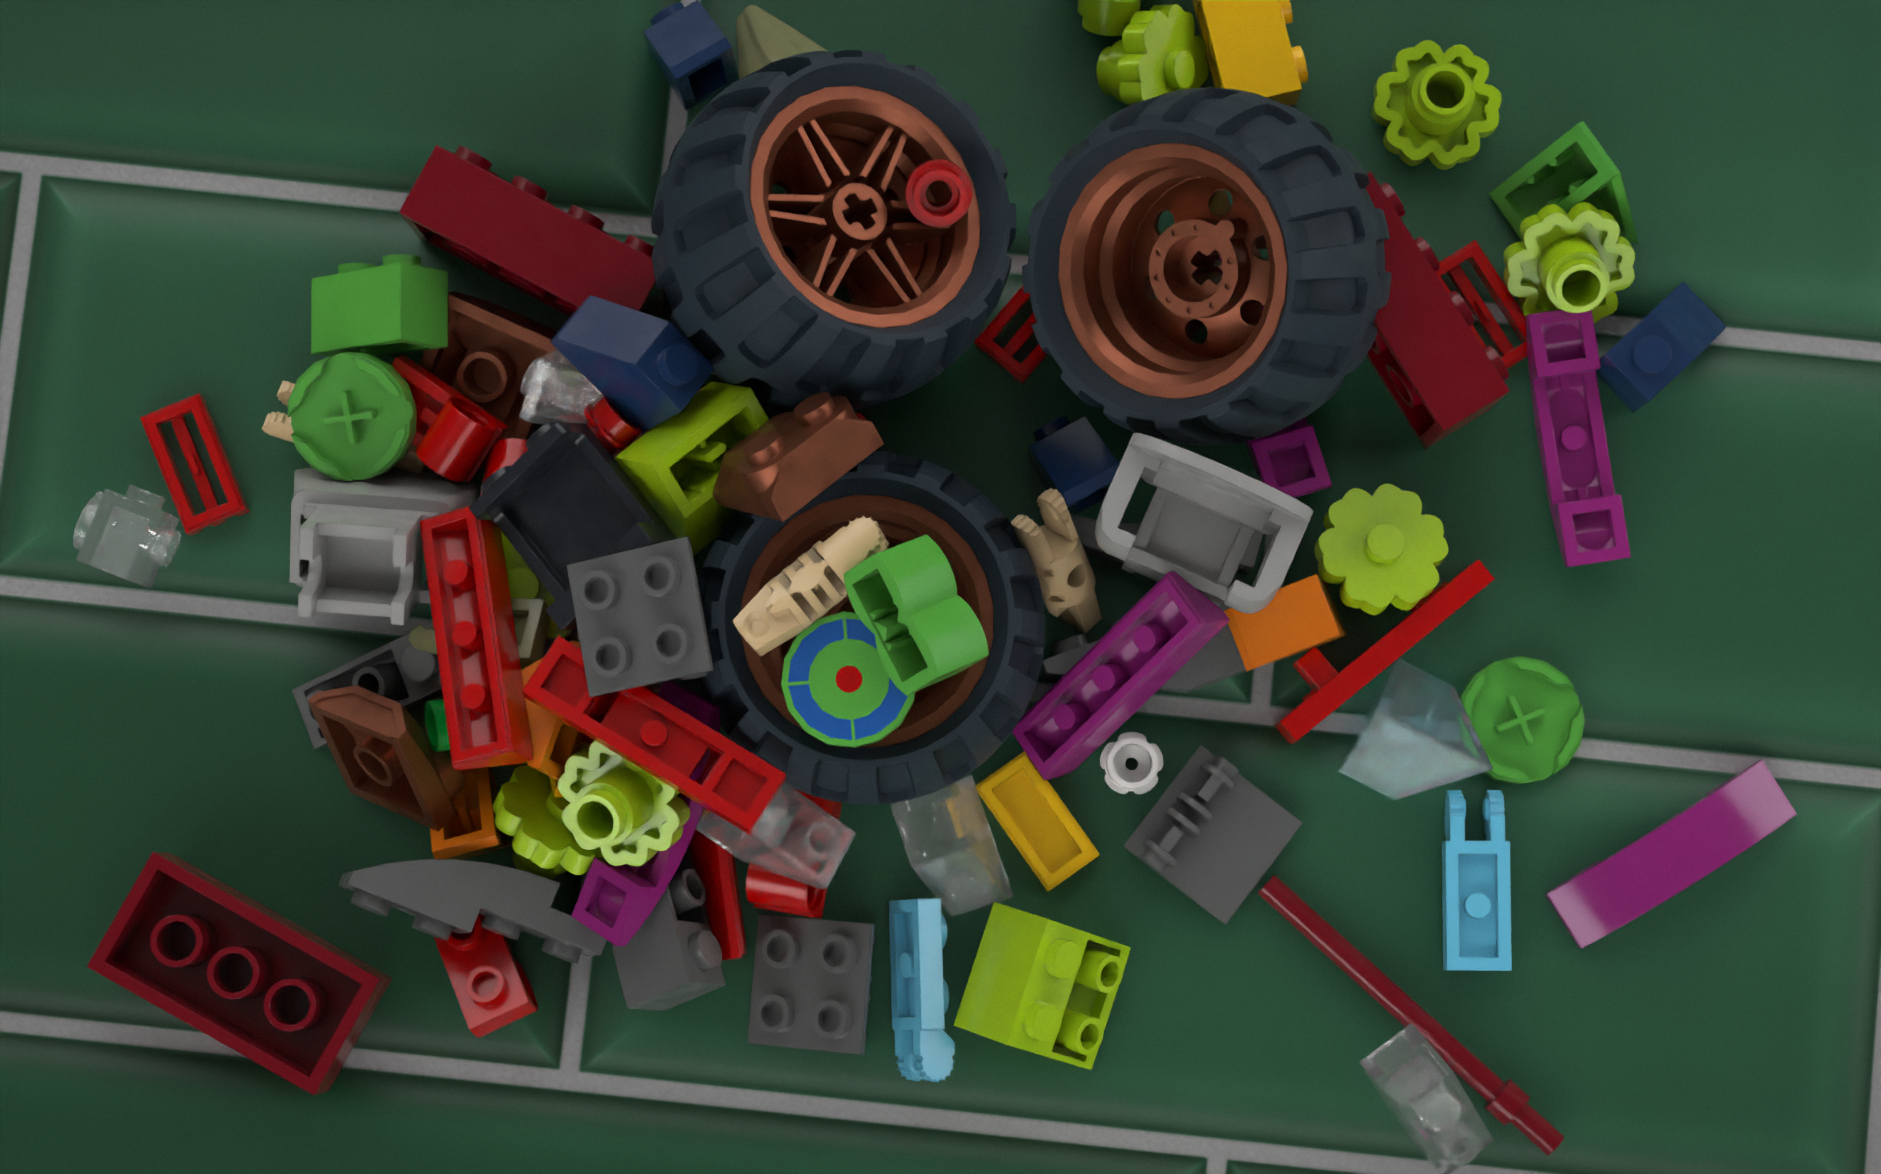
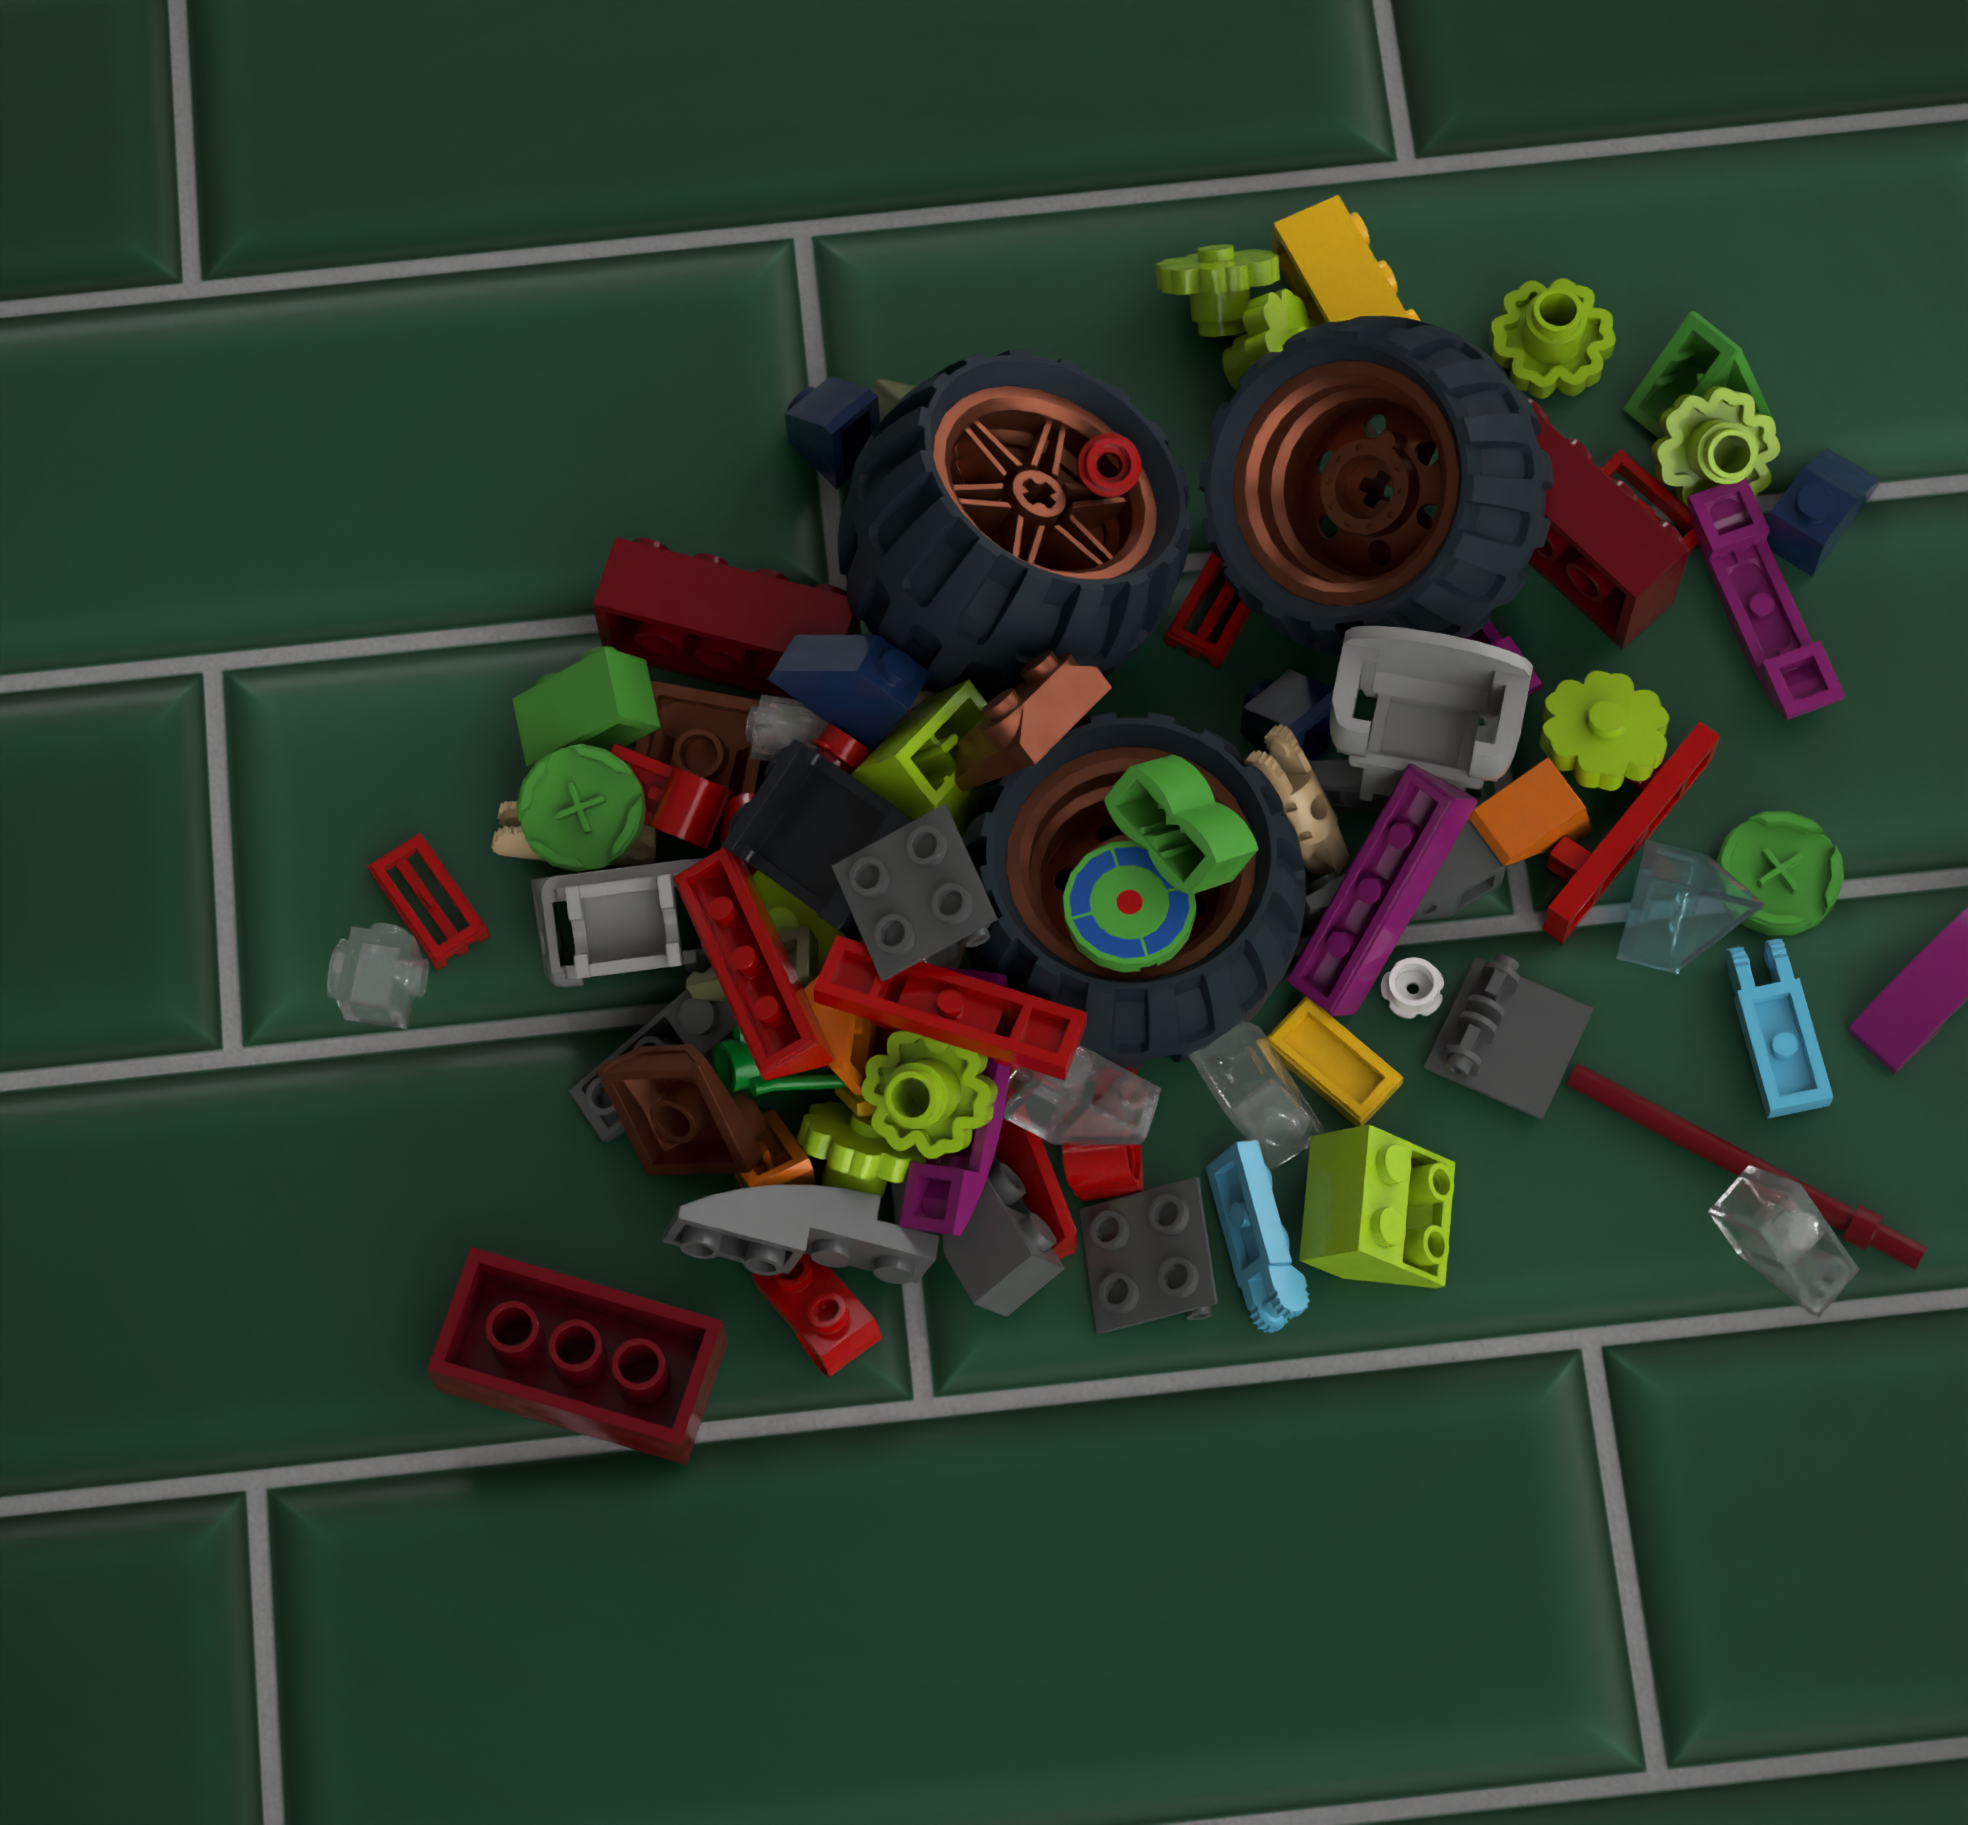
camera: 10 degrees left, 15 degrees down
(807, 586) = (1069, 827): tan hinge -> none

